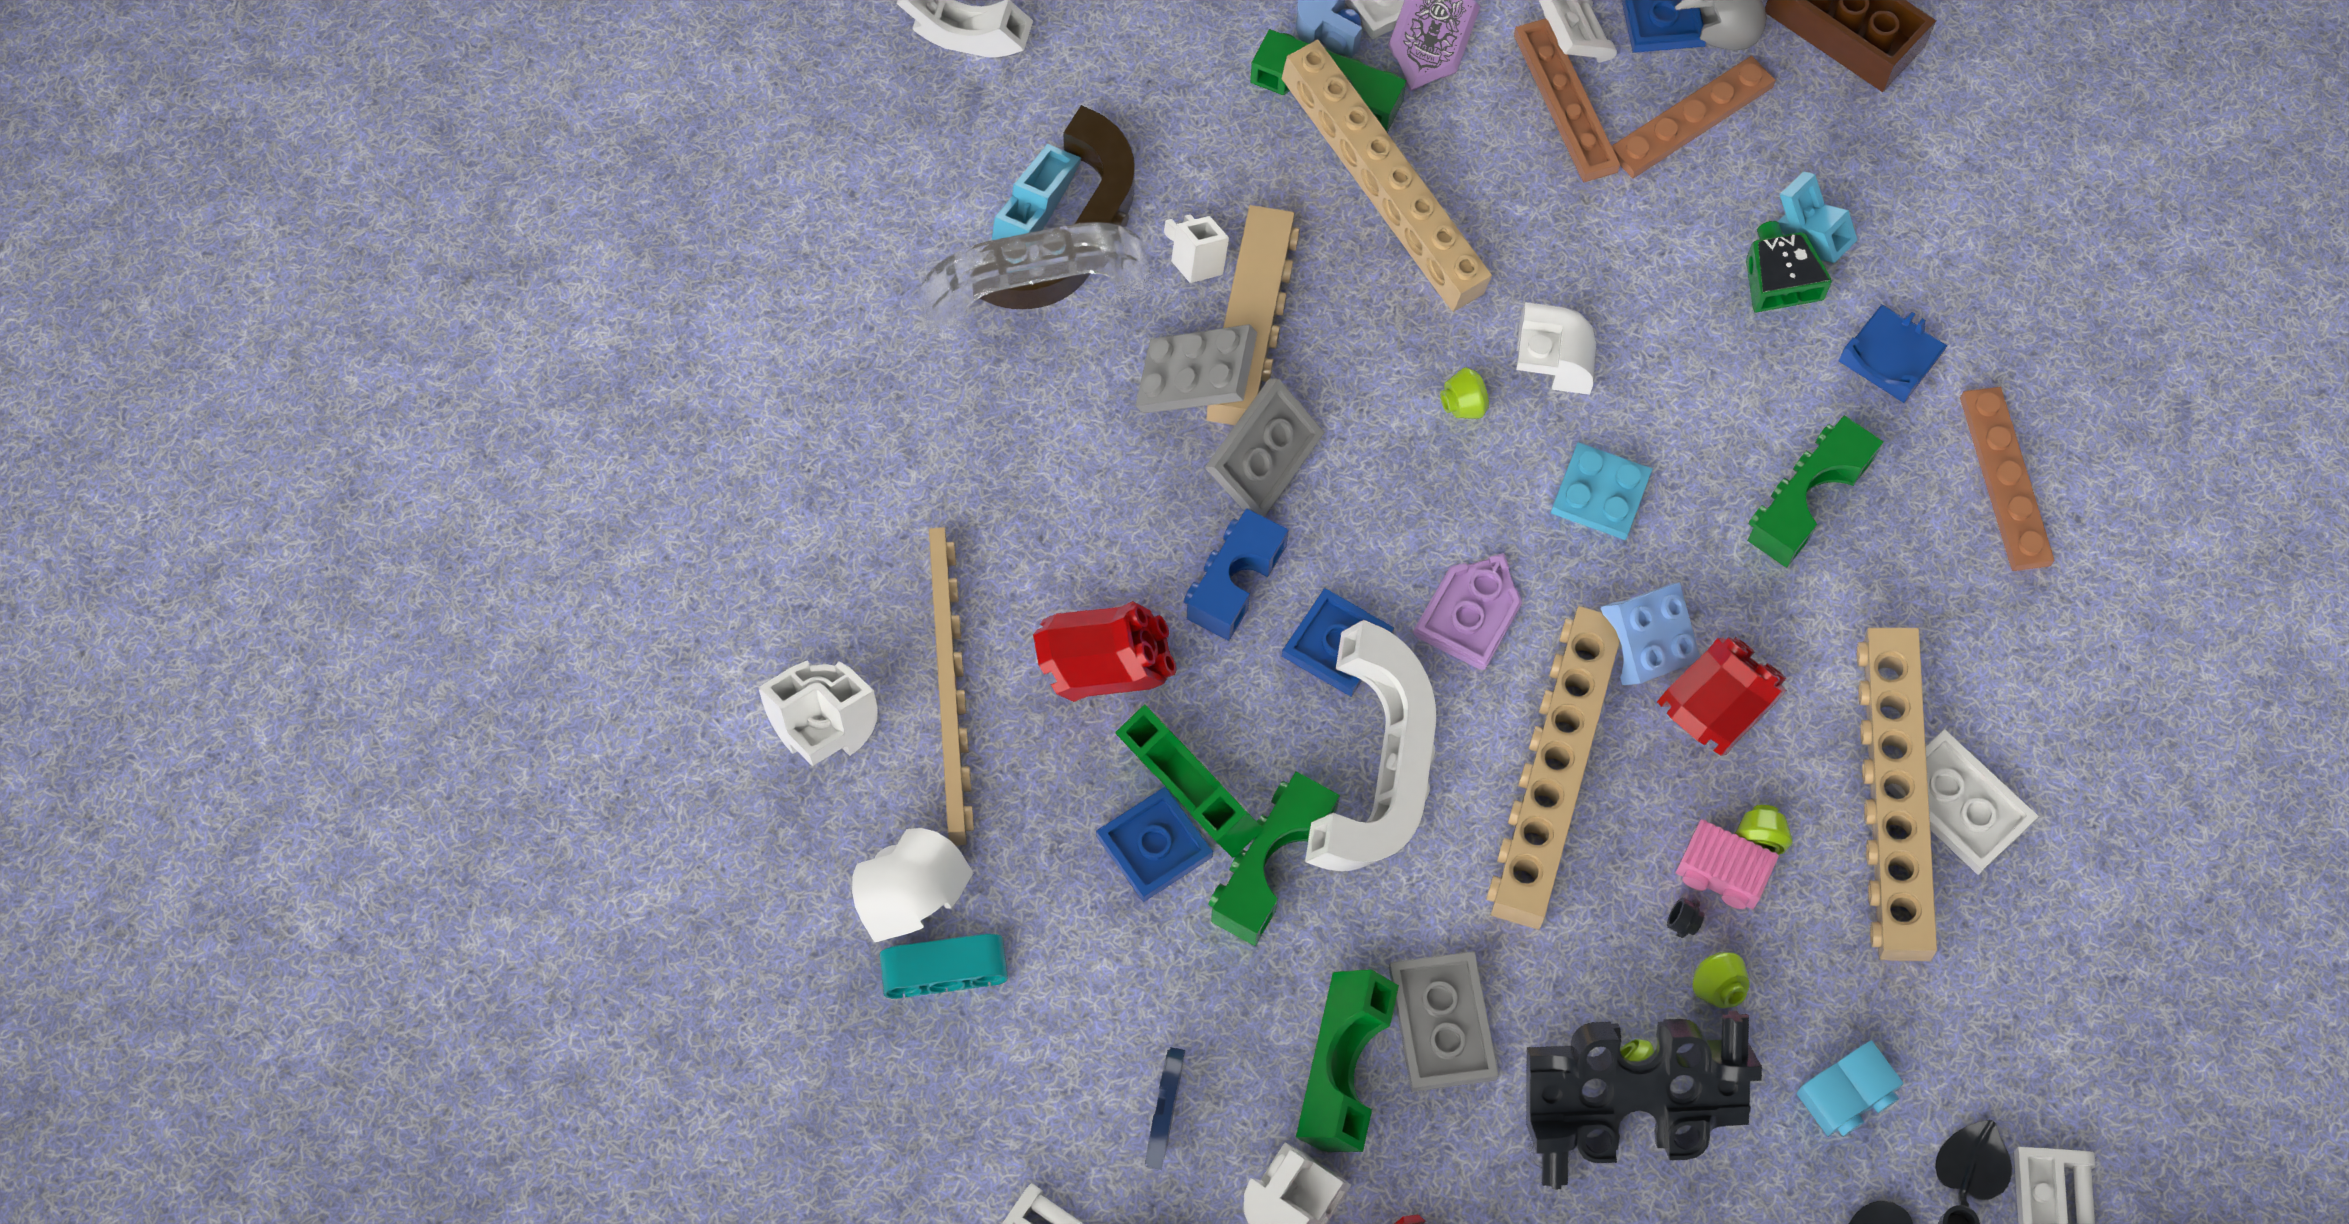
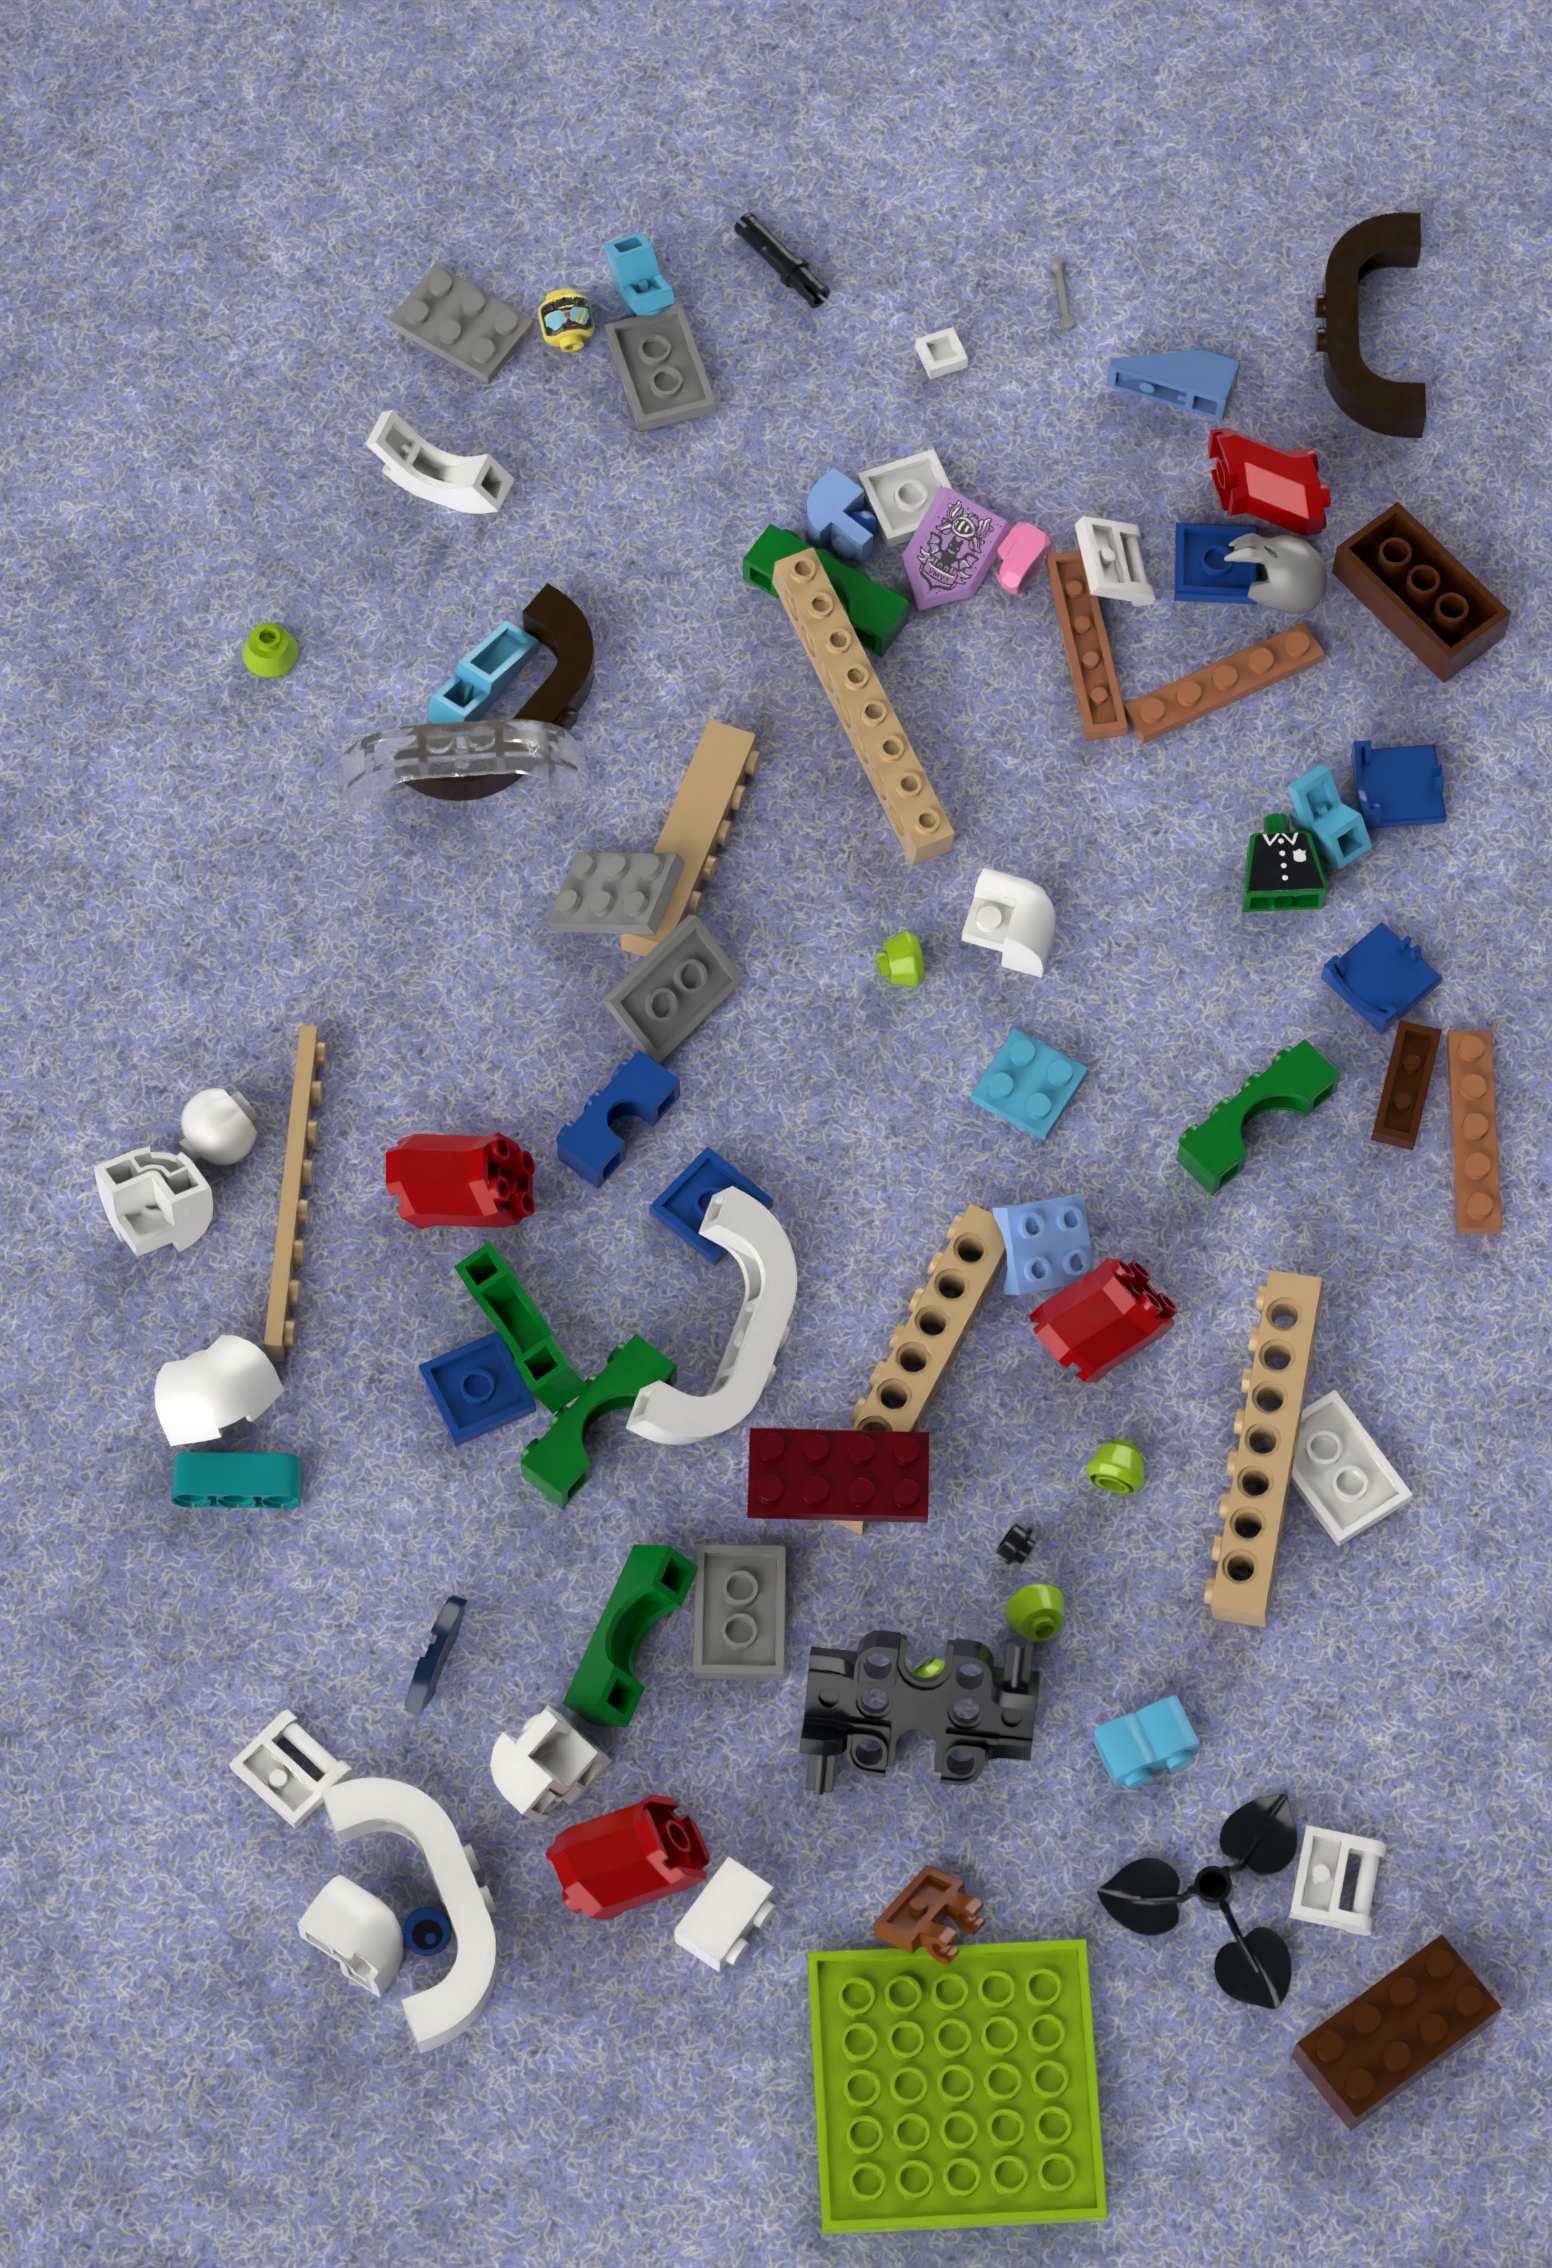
camera: 10 degrees right, 0 degrees up
(838, 198) = (270, 651): none -> lime cone
(867, 633) = (218, 1127): none -> white plant
(1197, 247) = (645, 759): white brick -> none
(1471, 611) = (861, 1193): lavender tile -> none
(1494, 30) = (1021, 557): none -> bright pink rock
(1514, 877) = (838, 1475): none -> dark red plate
(1726, 865) = (1069, 1497): bright pink brick -> none
(1867, 183) = (1398, 785): none -> blue piece
(1938, 445) = (1406, 1085): none -> reddish brown plate

